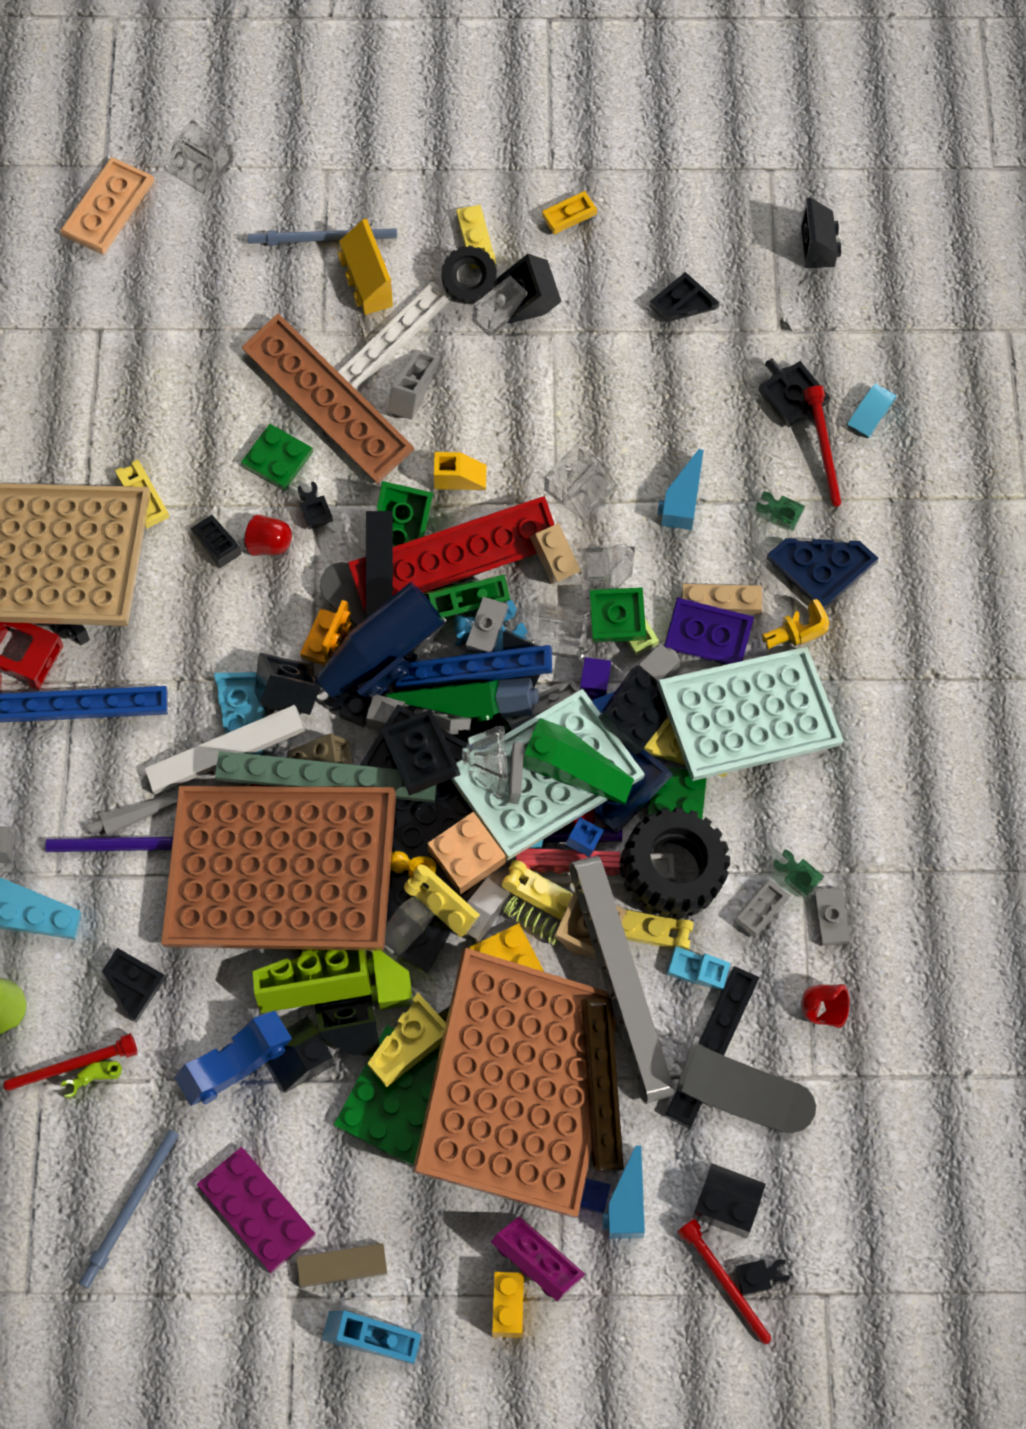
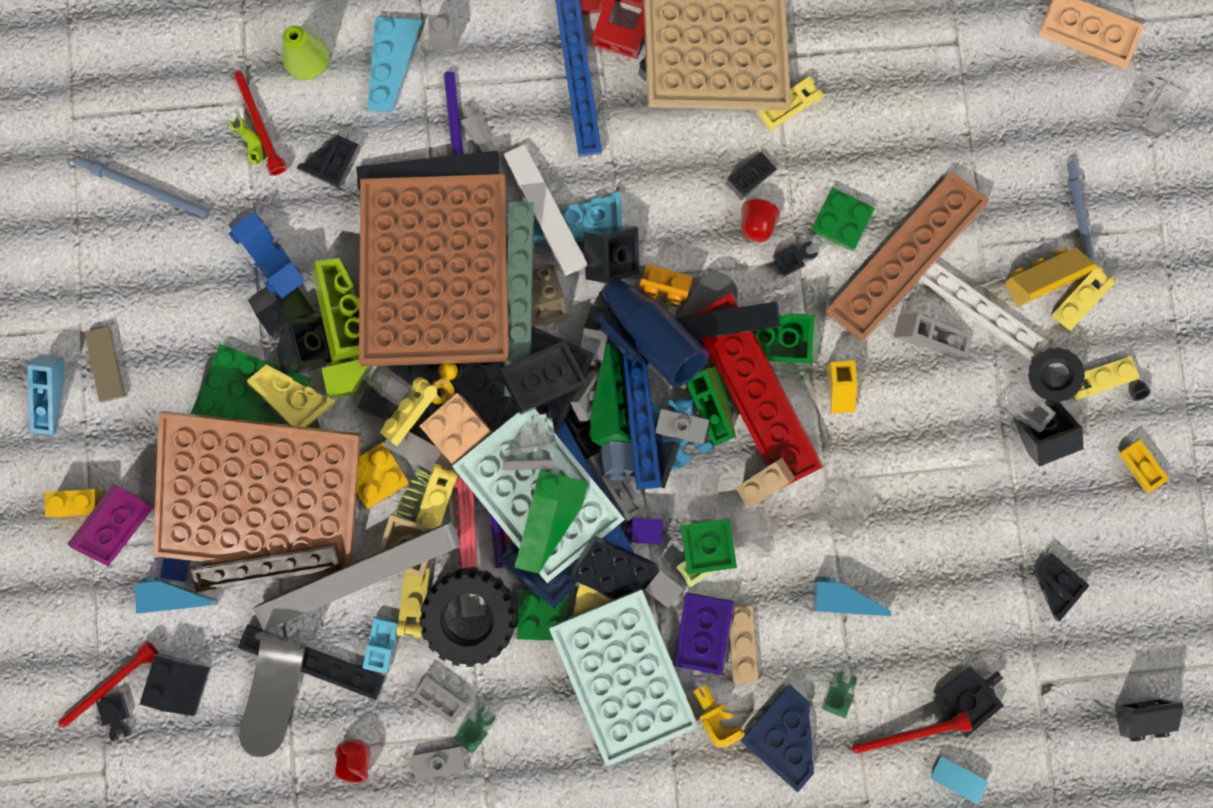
camera: 85 degrees right, 15 degrees up
(160, 841) = (457, 165): none -> black tile
(256, 1210) = (147, 289): magenta plate -> none
(395, 245) = (1082, 299): none -> light yellow plate
(491, 207) = (1139, 390): none -> black hinge
(584, 837) = (484, 533): blue bracket -> none

